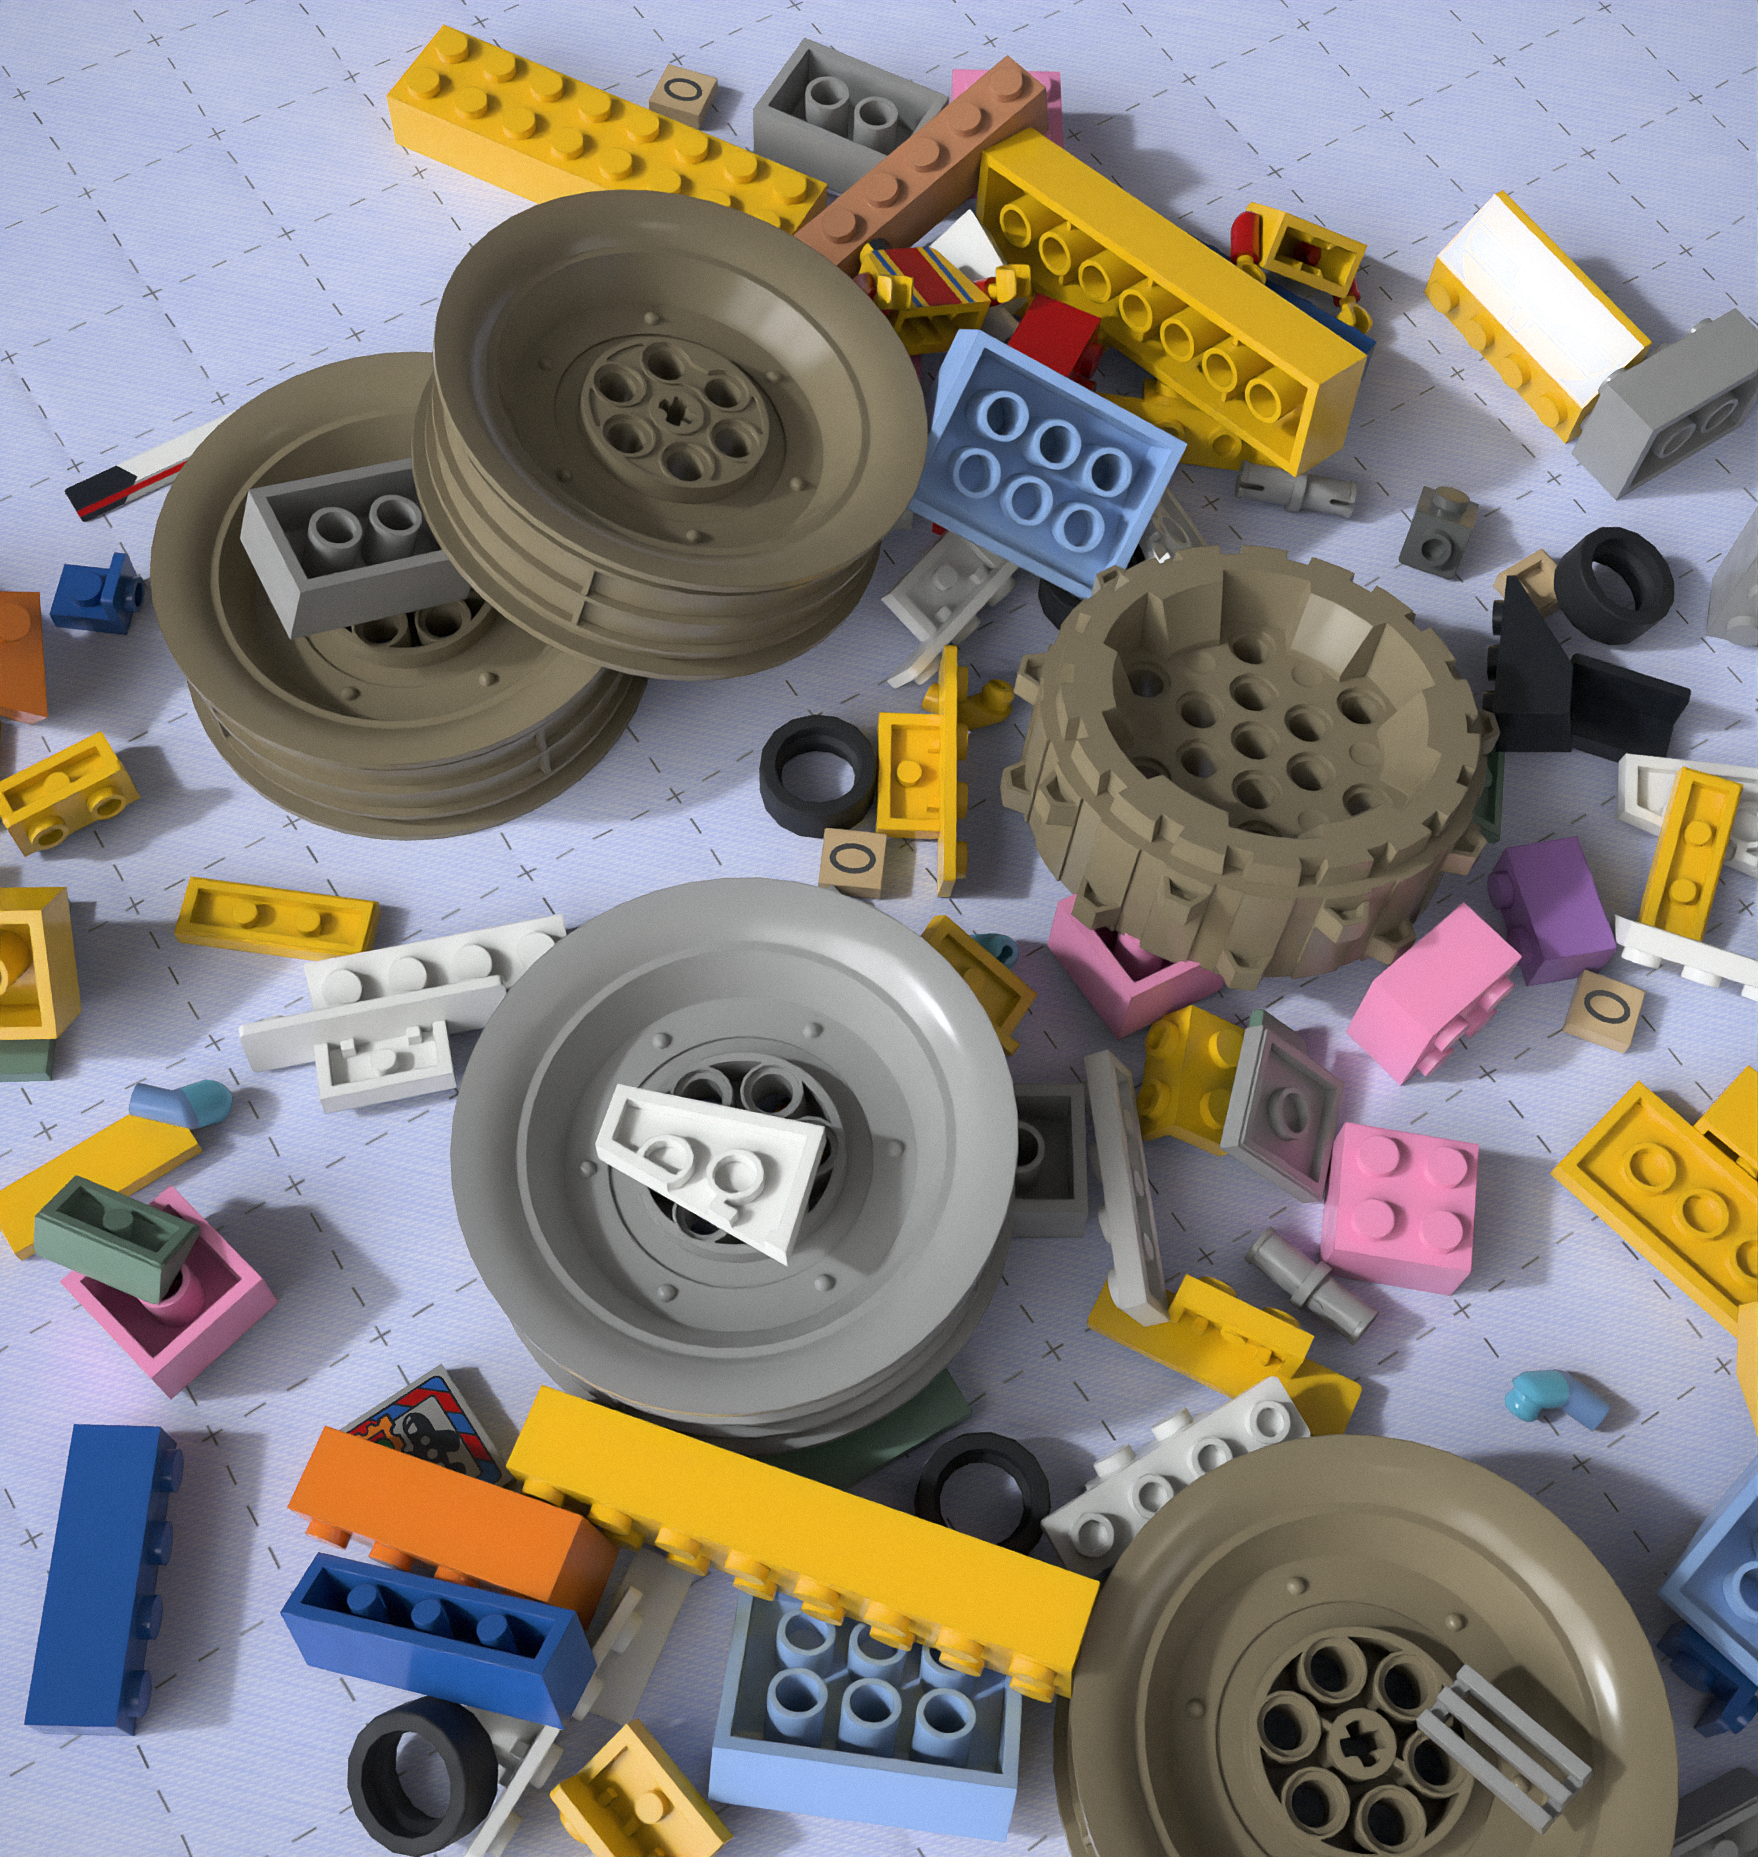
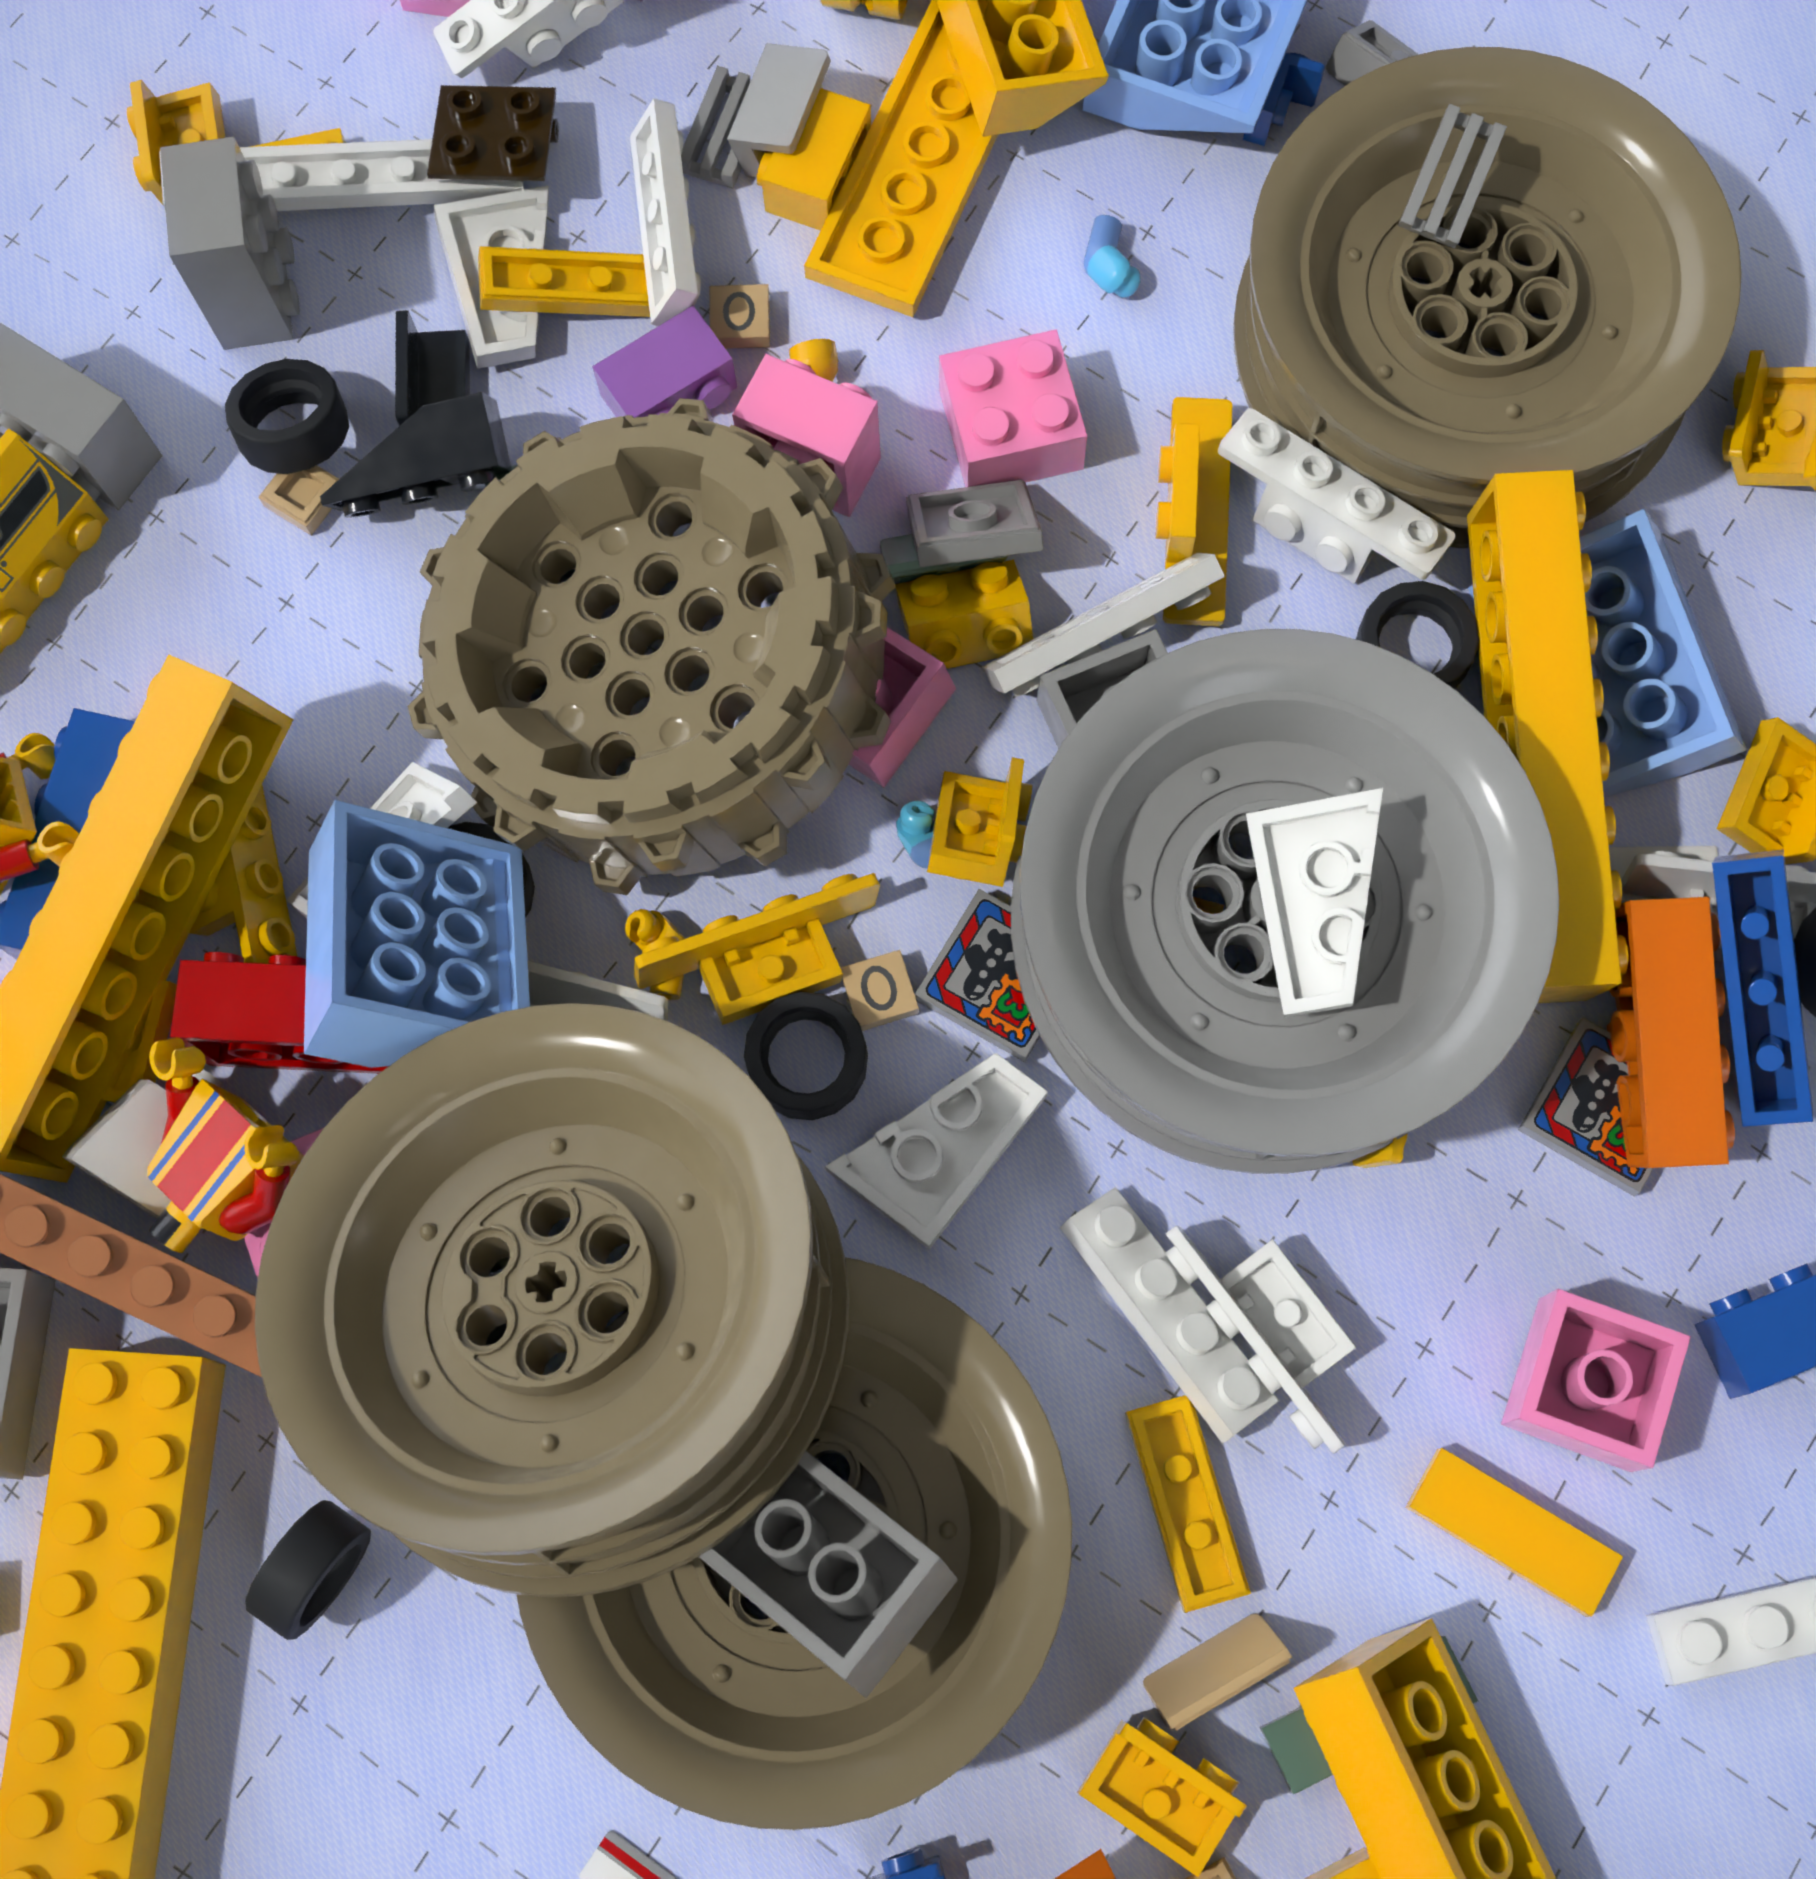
camera: 105 degrees left, 10 degrees up
(113, 1239) = (1593, 1435): sand green slope -> none
(129, 878) = (1215, 1671): none -> tan slope
(184, 1107) = (1419, 1473): arm -> none
(673, 825) = (939, 1153): none -> white wing
(1303, 492) = (285, 774): light grey pin -> none
(1311, 1285) = (1106, 462): light grey pin -> none
(1439, 531) = (271, 590): dark grey bracket -> none
(1523, 1055) = (818, 355): none -> yellow hinge

